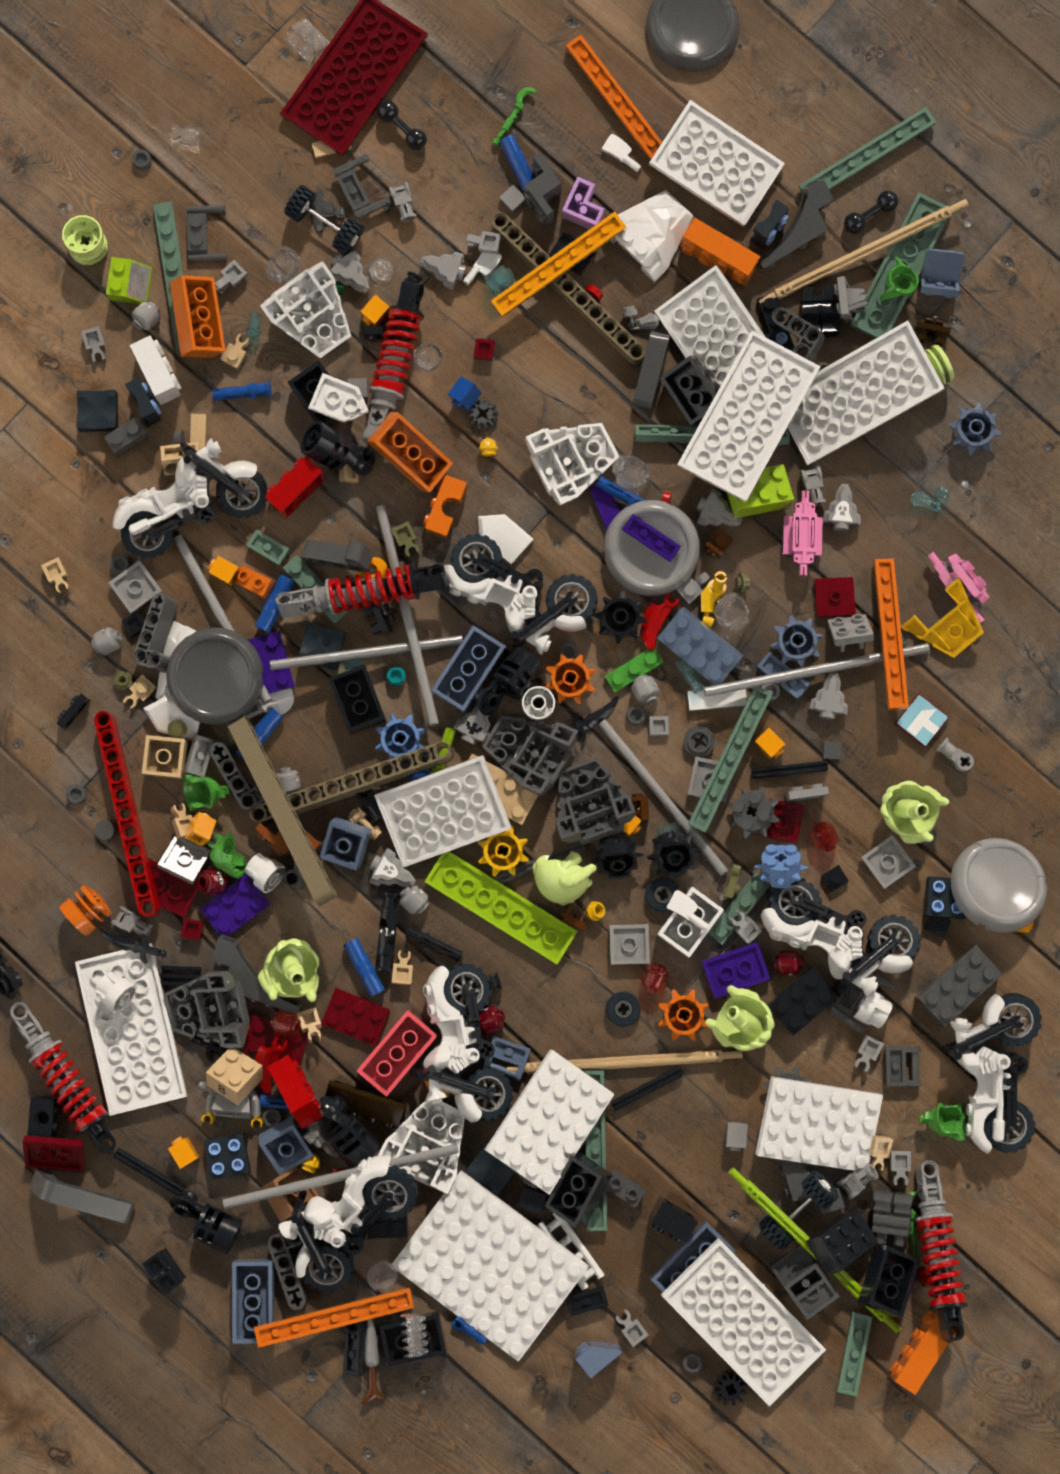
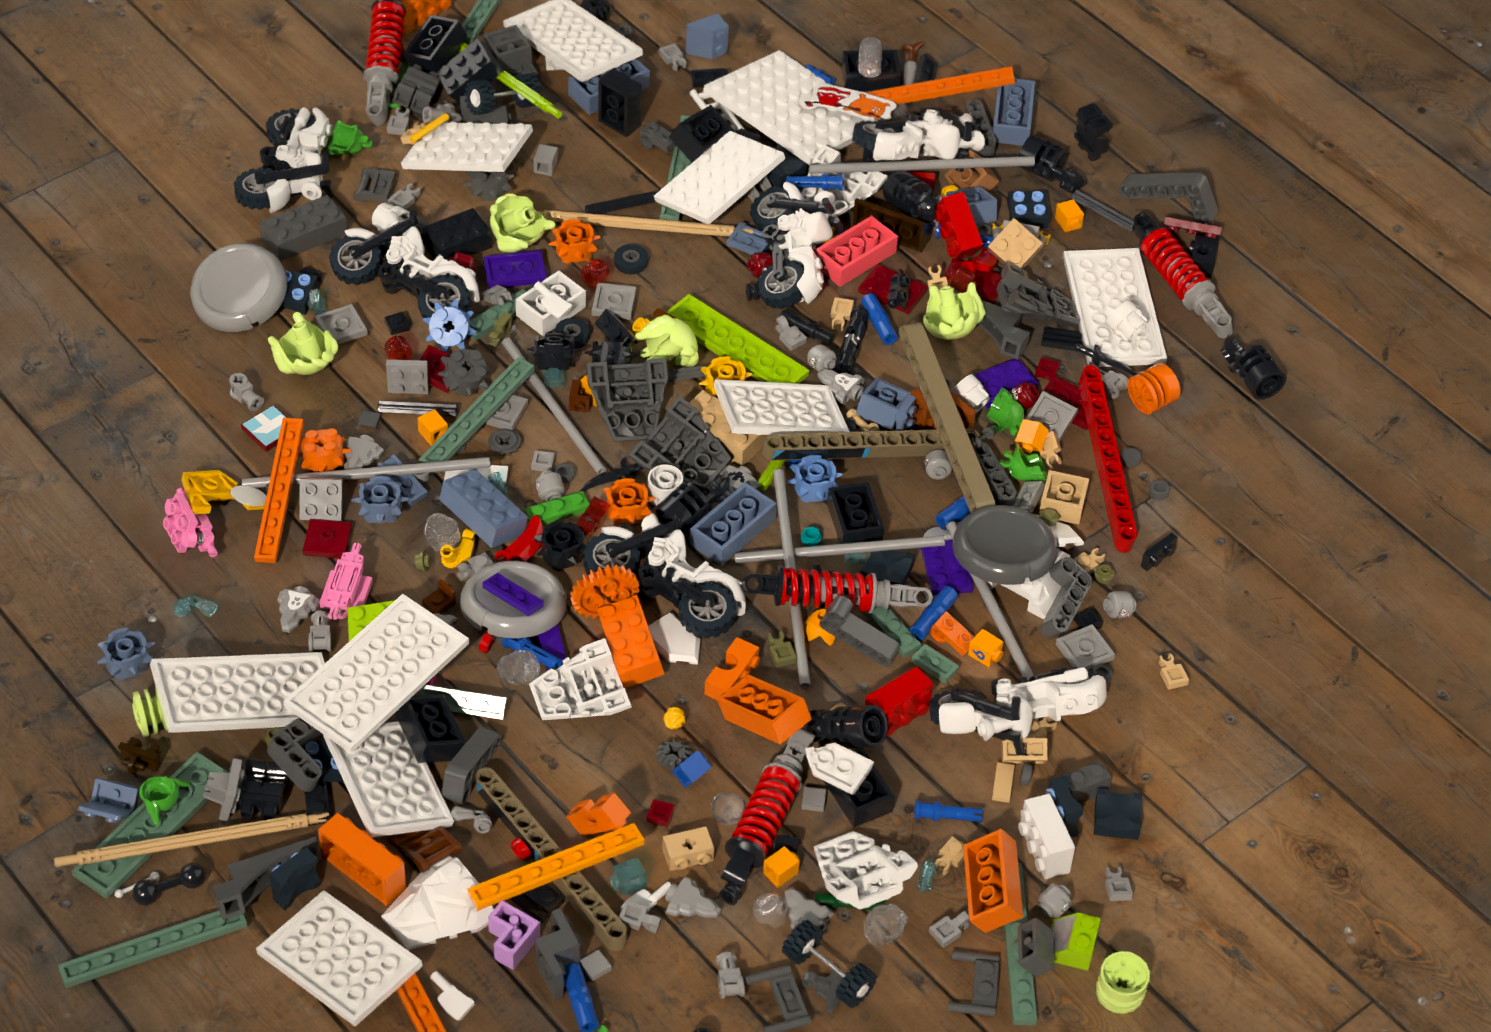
camera: 175 degrees left, 35 degrees down
(157, 261) = (1036, 947): none -> dark grey brick
(243, 830) = (987, 433): none -> dark grey piece
(320, 829) = (905, 414): none -> sand blue plate
(346, 1010) = (899, 290): none -> black hinge
(428, 1277) = (849, 101): none -> sticker
(439, 1136) = (825, 182): none -> blue pin
(448, 930) = (792, 336): none -> light grey plate
(449, 324) = (688, 848): none -> tan brick
(526, 314) = (598, 817): none -> orange arch
(539, 517) = (630, 641): none -> orange brick
(570, 554) = (614, 586): none -> orange gear
(599, 650) = (593, 516): none -> clear red leg
(618, 900) = (615, 329): none -> black hinge
(671, 283) = (428, 844): none -> reddish brown plate
(852, 690) = (322, 450): none -> orange brick
(865, 1149) = (429, 128): none -> yellow piece
(885, 223) = (154, 876): none -> white hinge
(917, 627) = (248, 495): none -> white sticker
(918, 885) = (317, 302): none -> clear light blue plate

